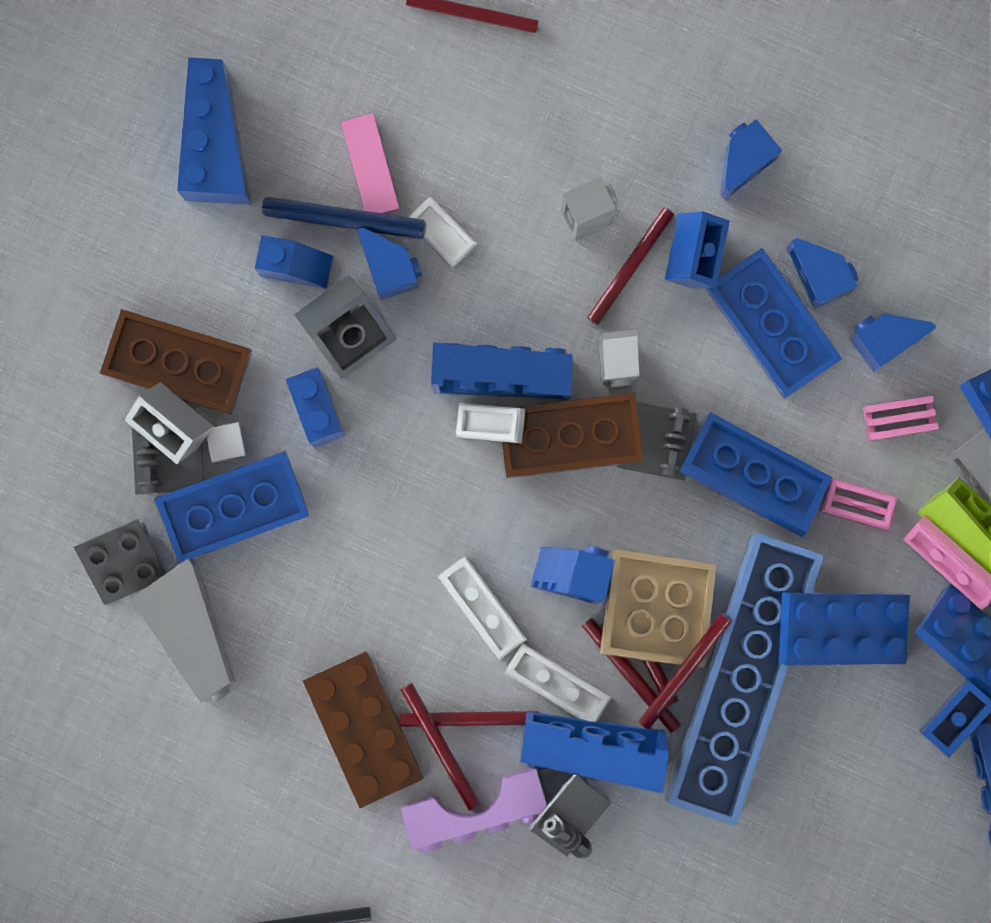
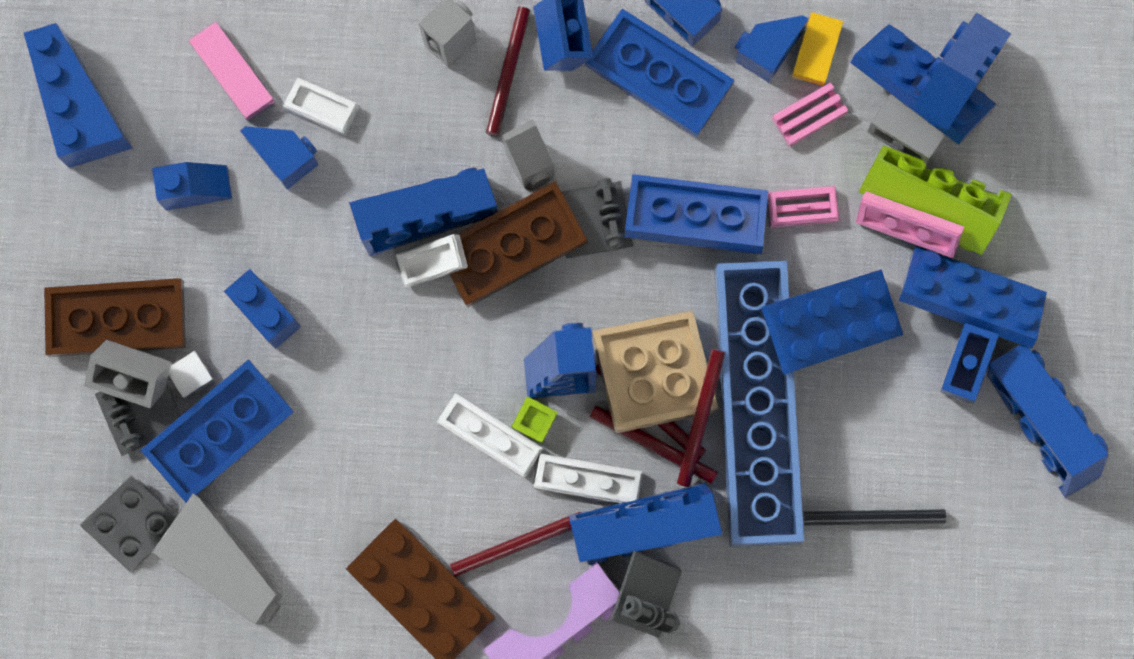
camera: 20 degrees left, 5 degrees down
(343, 217) = (223, 125): dark blue axle -> none
(345, 326) = (262, 224): dark grey slope -> none
(440, 746) = (499, 579): dark red bar -> none
(529, 610) = (534, 420): none -> lime plate
(811, 824) = (874, 517): none -> black bar
(933, 357) = (817, 49): none -> yellow tile

